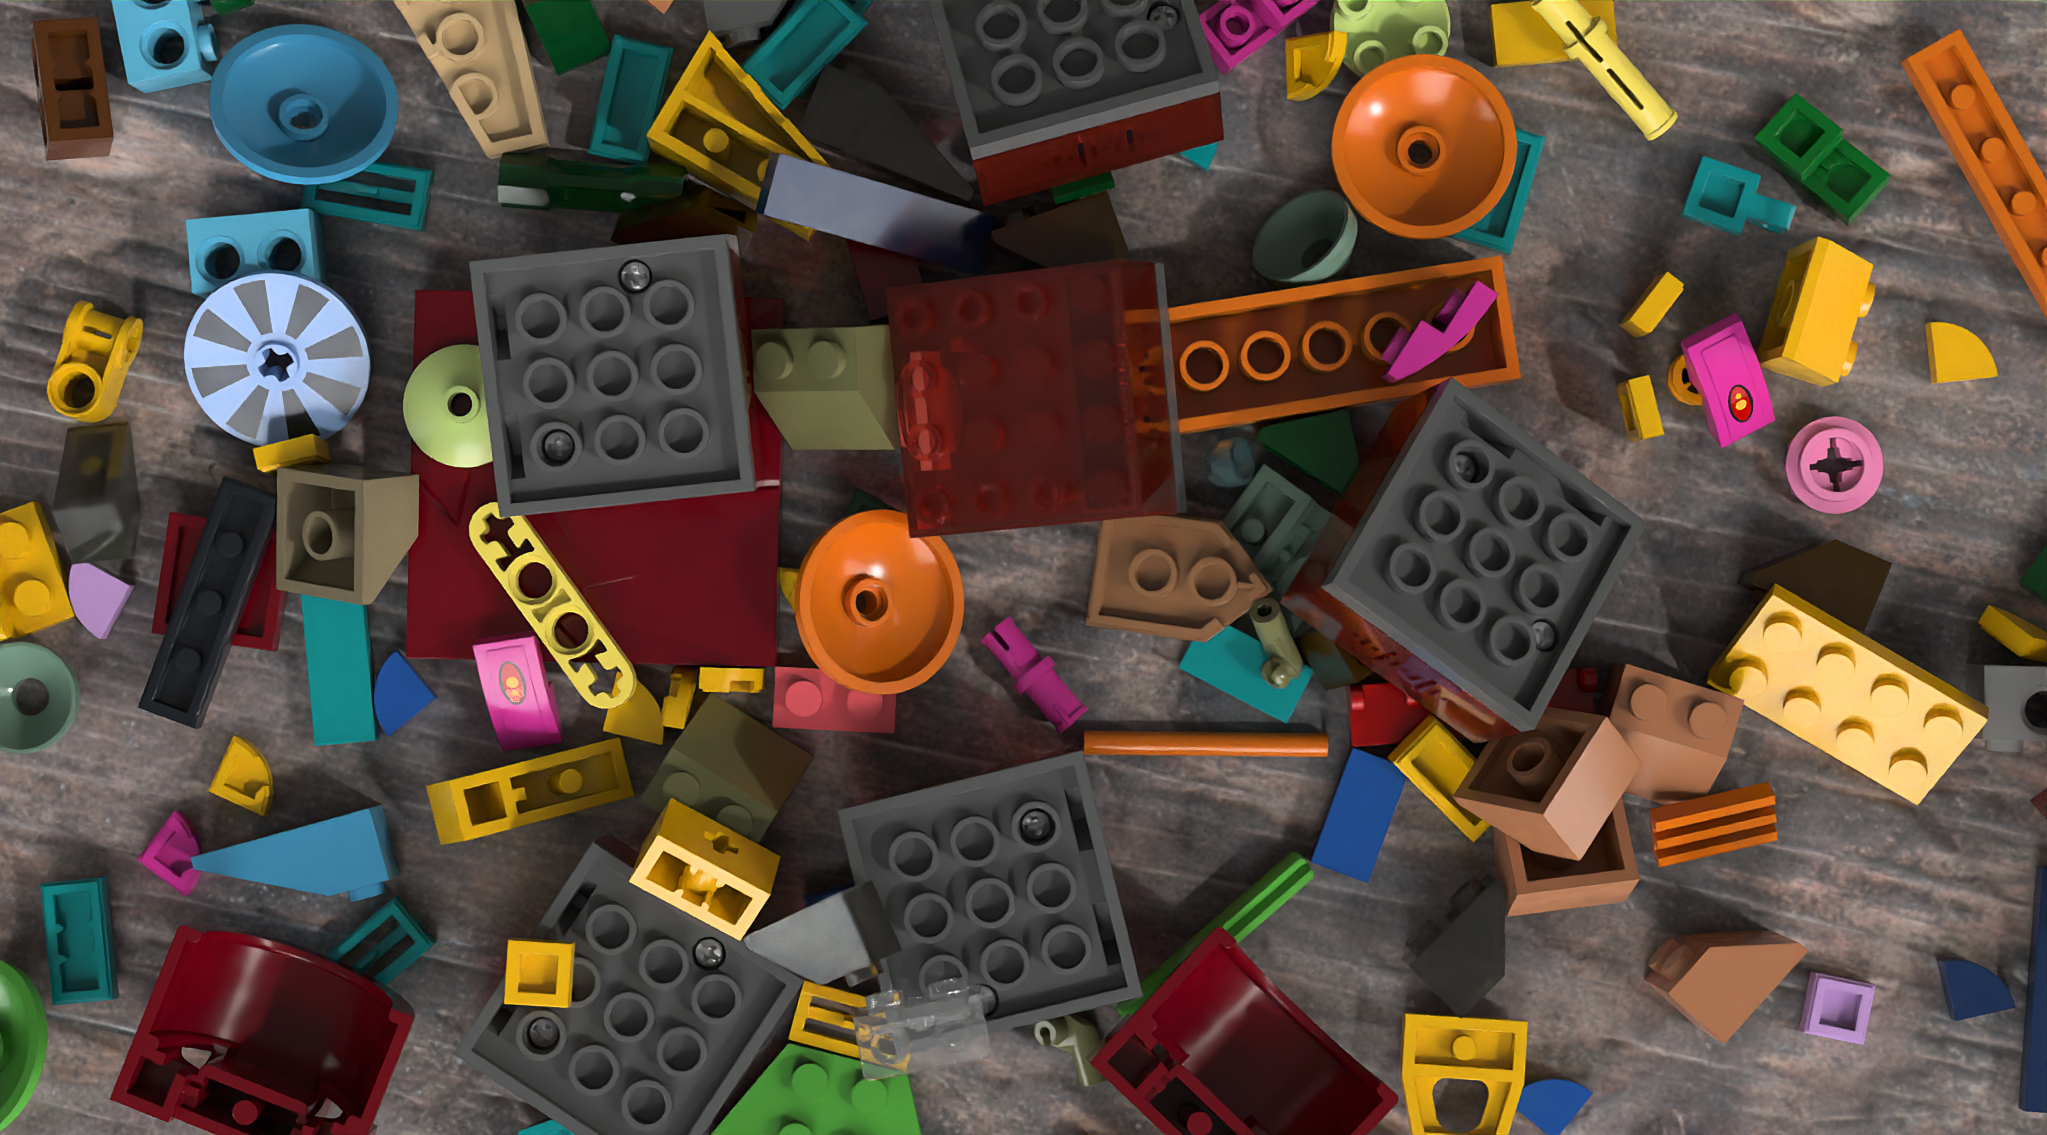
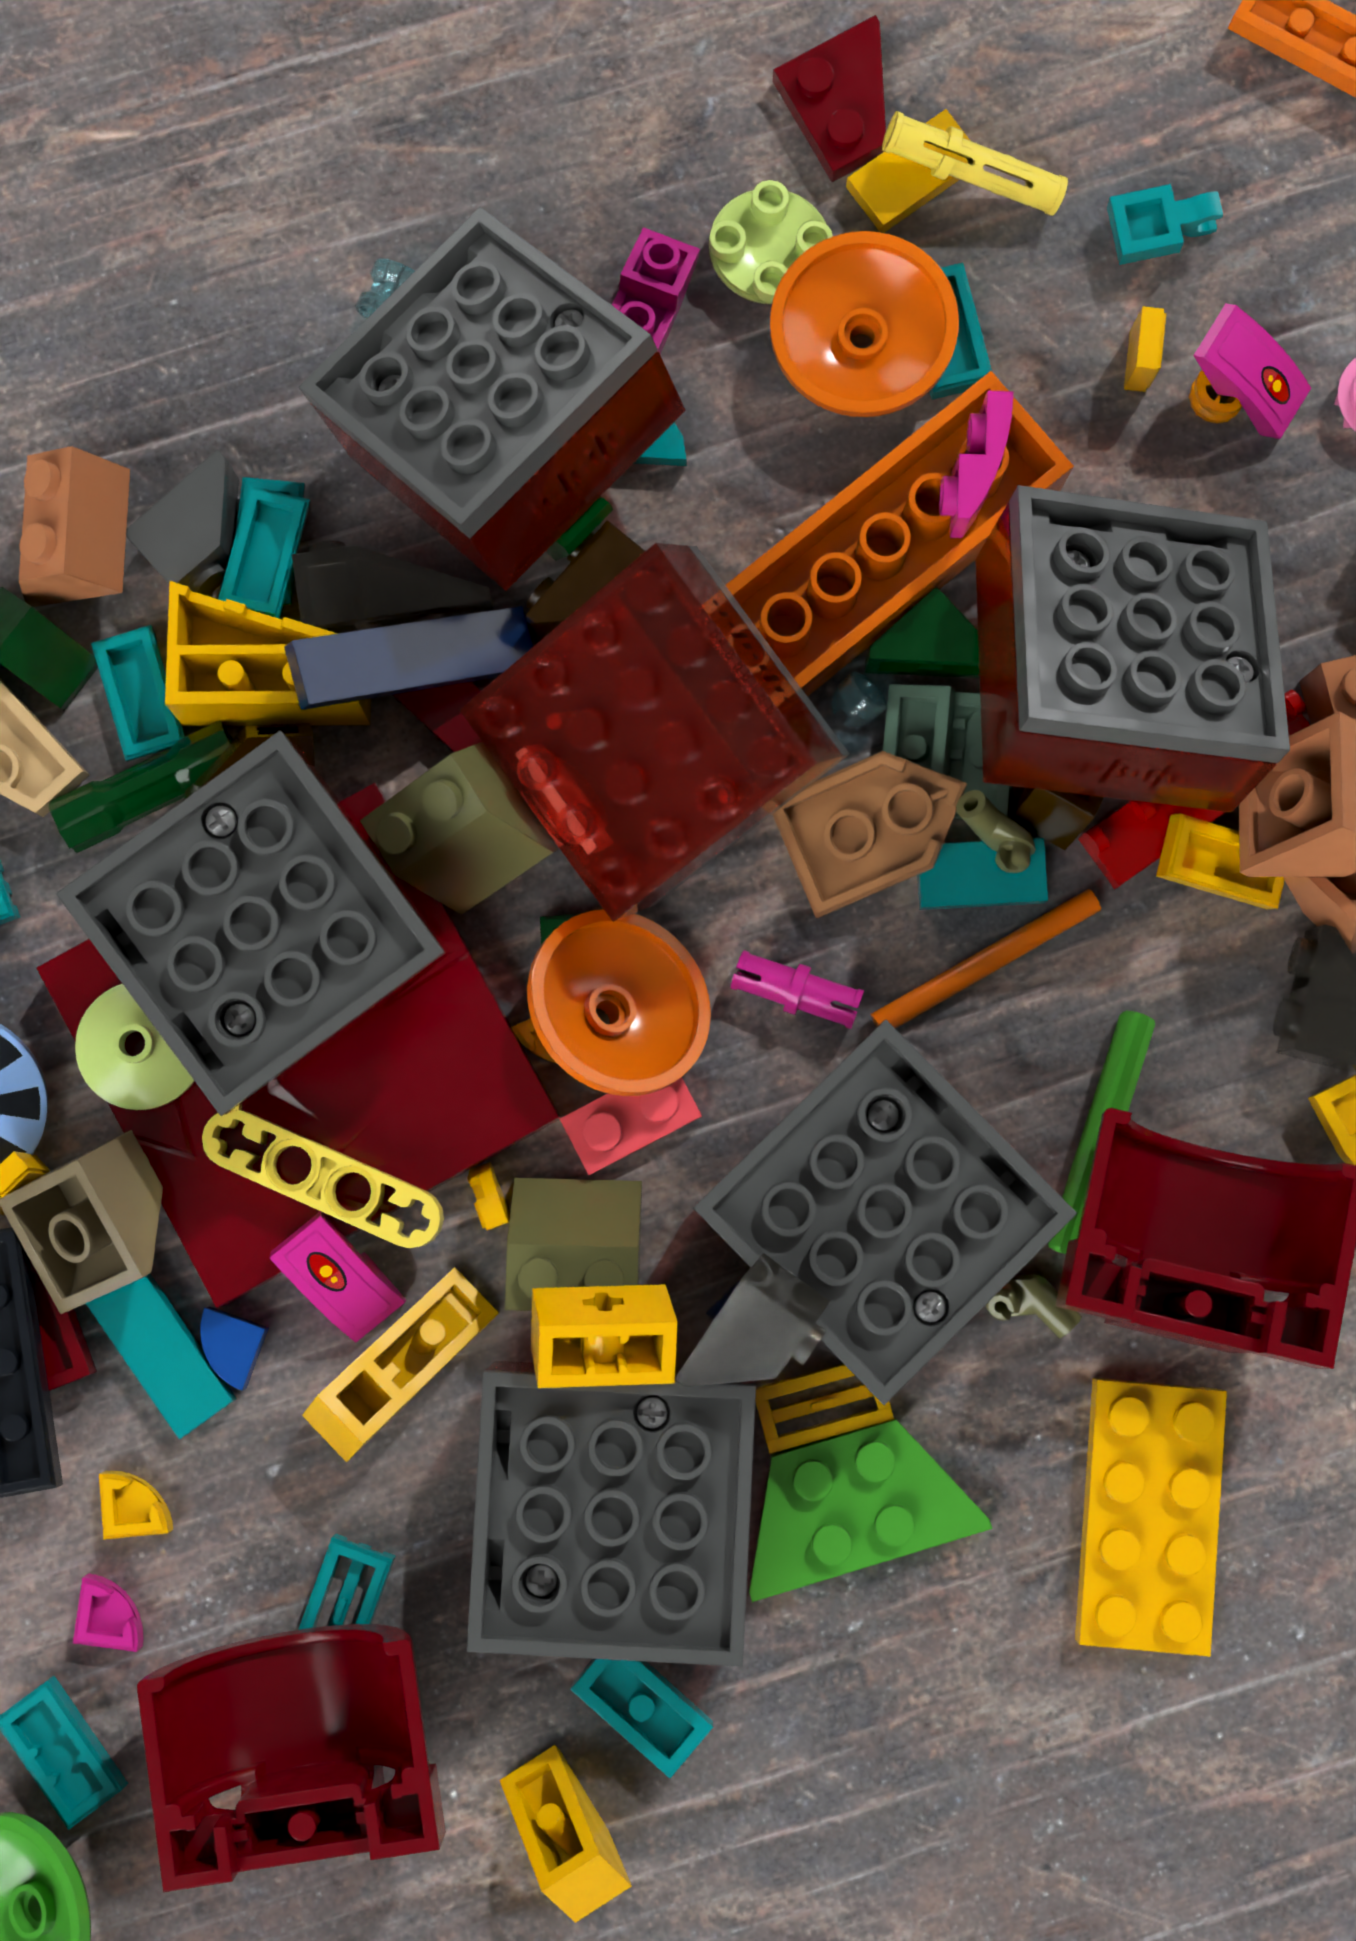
camera: 30 degrees left, 5 degrees down
(318, 858) = (243, 1538): dark azure slope -> none
(539, 972) = (503, 1525): yellow tile -> none
(637, 717) = (459, 1238): yellow tile -> none
(732, 679) = (526, 1153): yellow tile -> none
(922, 1031) = (896, 1365): clear bracket -> none
(1299, 233) = (802, 459): sand green piece -> none
(1313, 62) = (722, 314): yellow tile -> none
(1358, 815) = (1161, 945): blue tile -> none
(1639, 409) = (1189, 443): yellow tile -> none
(1816, 313) = (1290, 268): yellow slope -> none
(1821, 160) = (1210, 149): green slope -> none

